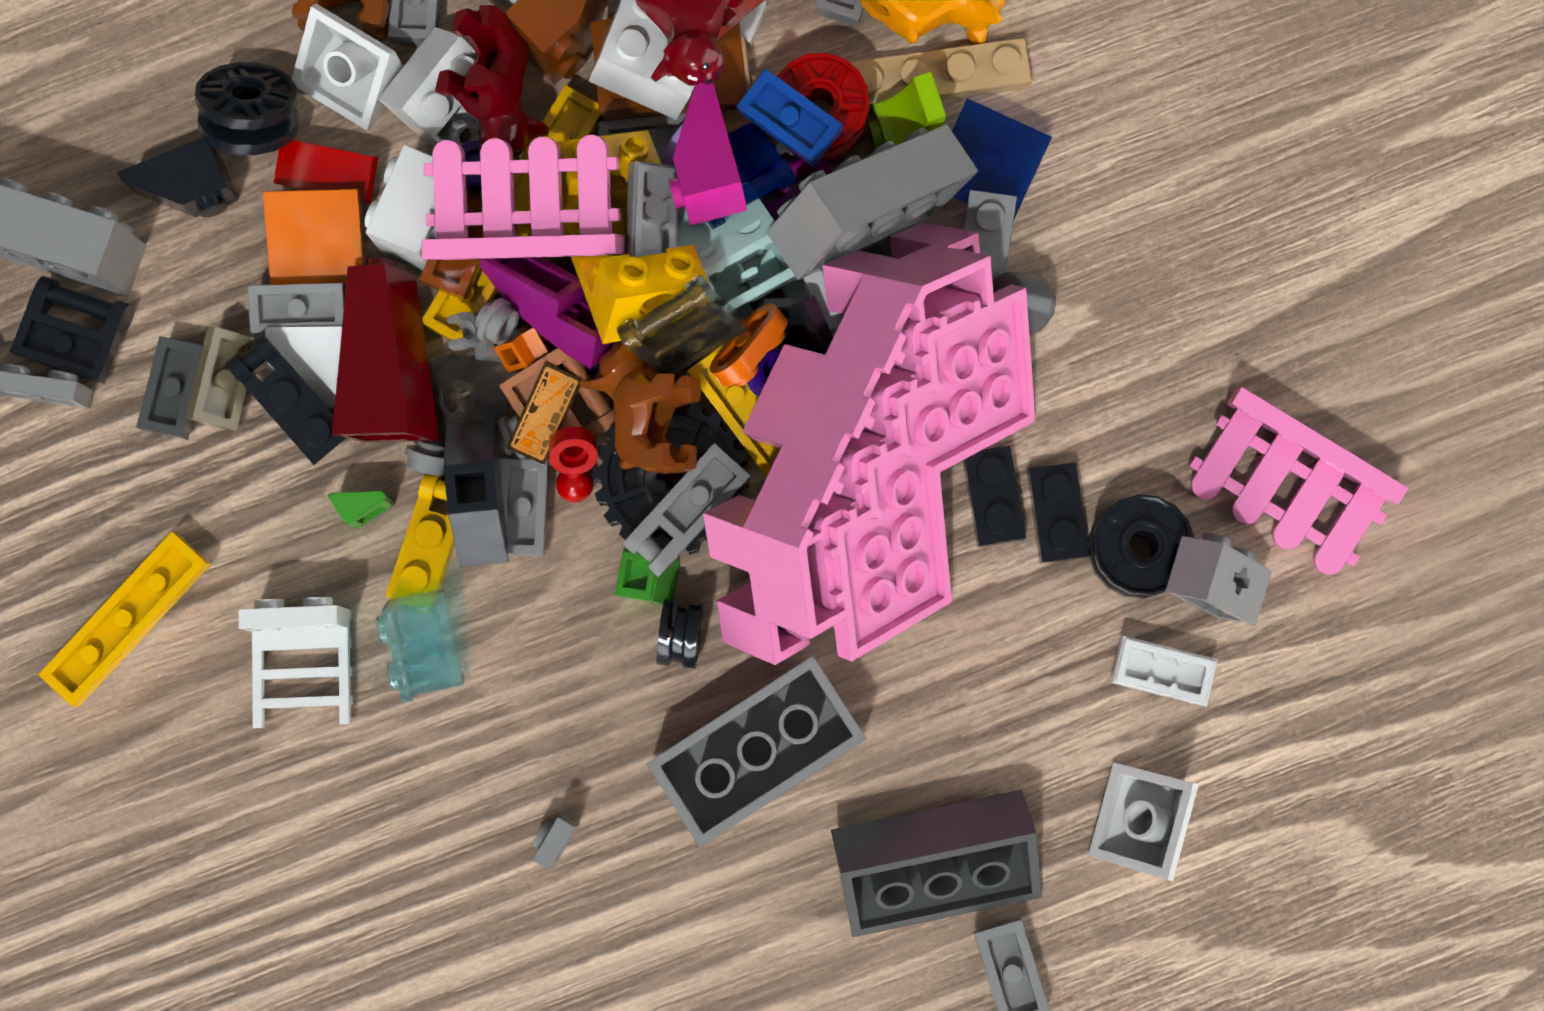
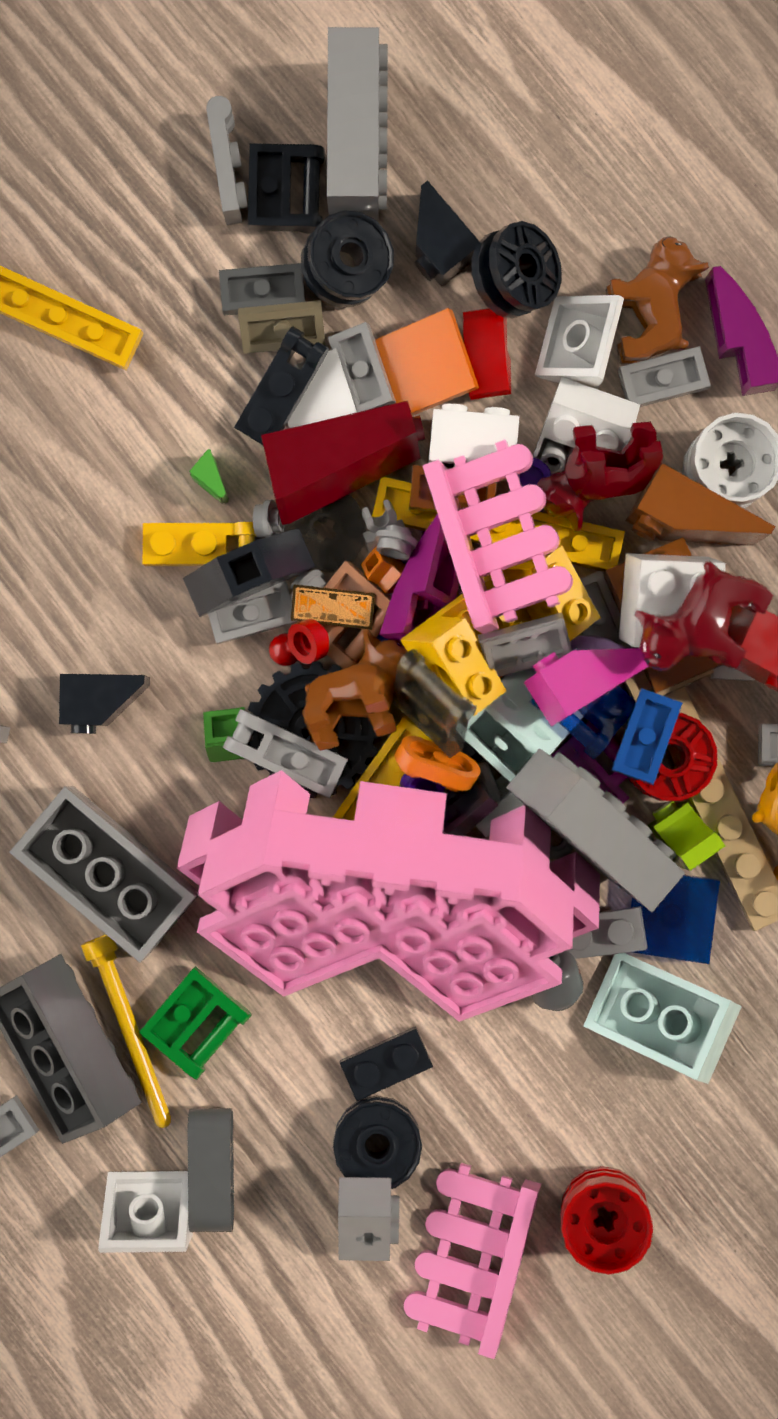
camera: 70 degrees right, 5 degrees up
(165, 260) = (364, 242): none -> black wheel
(299, 628) = (99, 472): white plate -> none
(420, 644) = (111, 565): clear light blue bracket -> none
(561, 704) = (96, 699): none -> black slope
(686, 633) = (184, 783): black wheel -> none
(845, 786) = (102, 953): none -> yellow piece
(938, 714) = (184, 1014): none -> green plate
(994, 497) = (381, 1007): black plate -> none
(1092, 203) = (662, 1017): none -> light aqua slope
(1117, 736) = (210, 1170): none -> dark grey beam
(1163, 671) = (278, 1192): white plate -> none
(1299, 299) = (612, 1244): none -> red wheel

